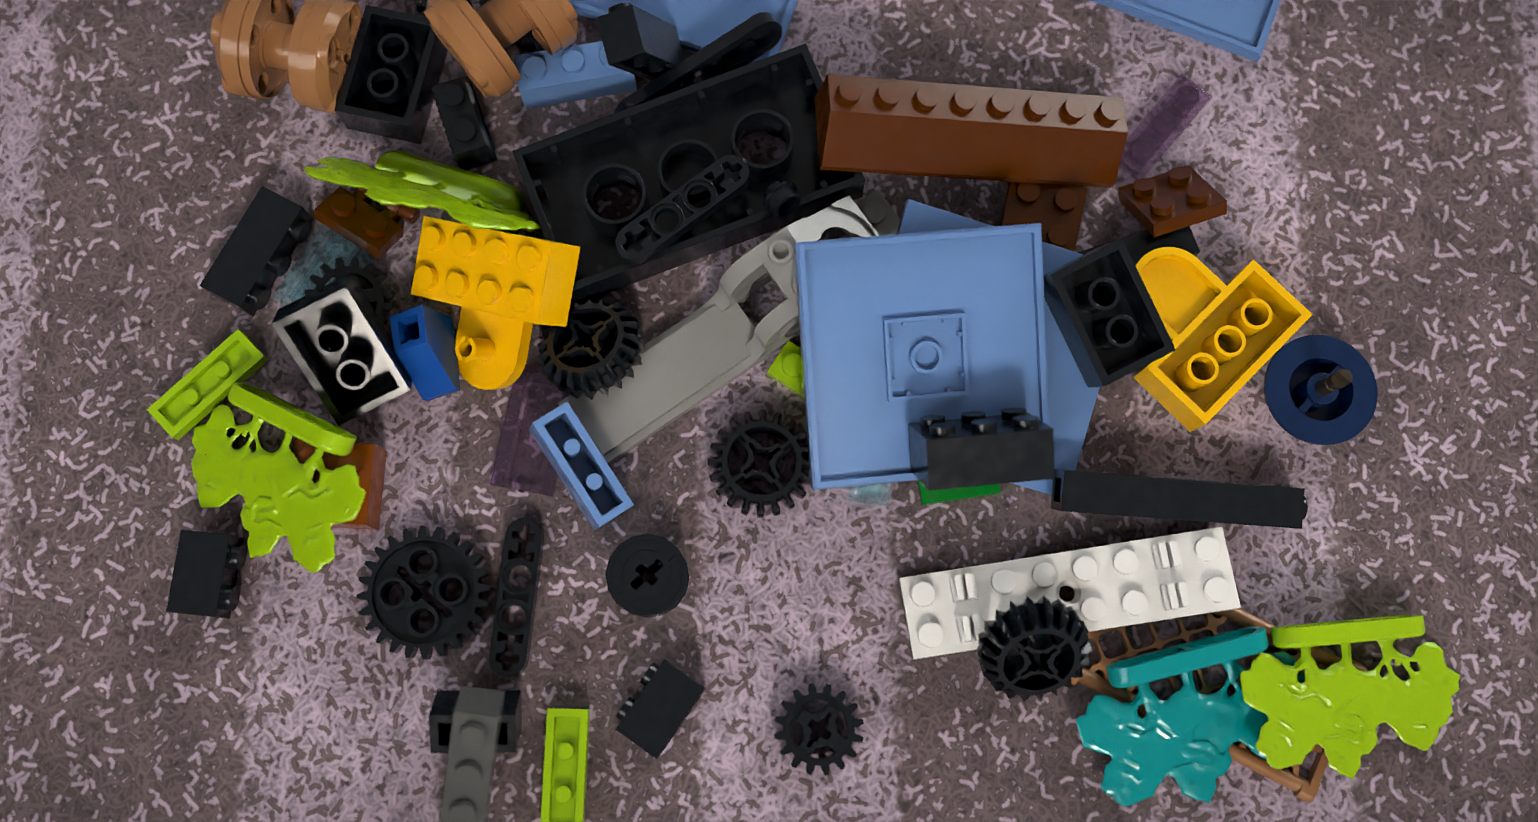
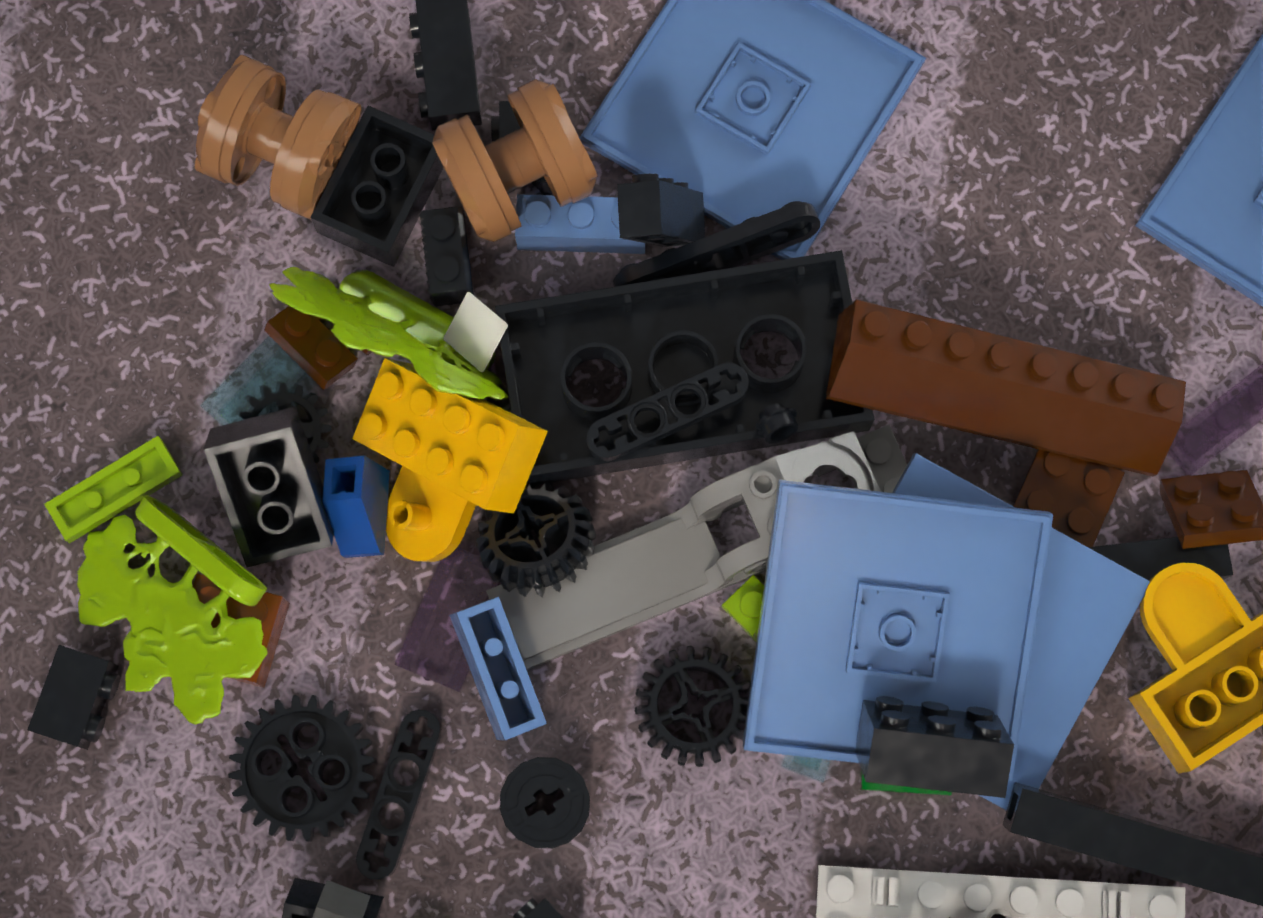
camera: 15 degrees right, 0 degrees up
(258, 252) = (195, 354): black brick -> none
(500, 178) = (475, 332): none -> white sticker
(1106, 314) = (1105, 627): black brick -> none

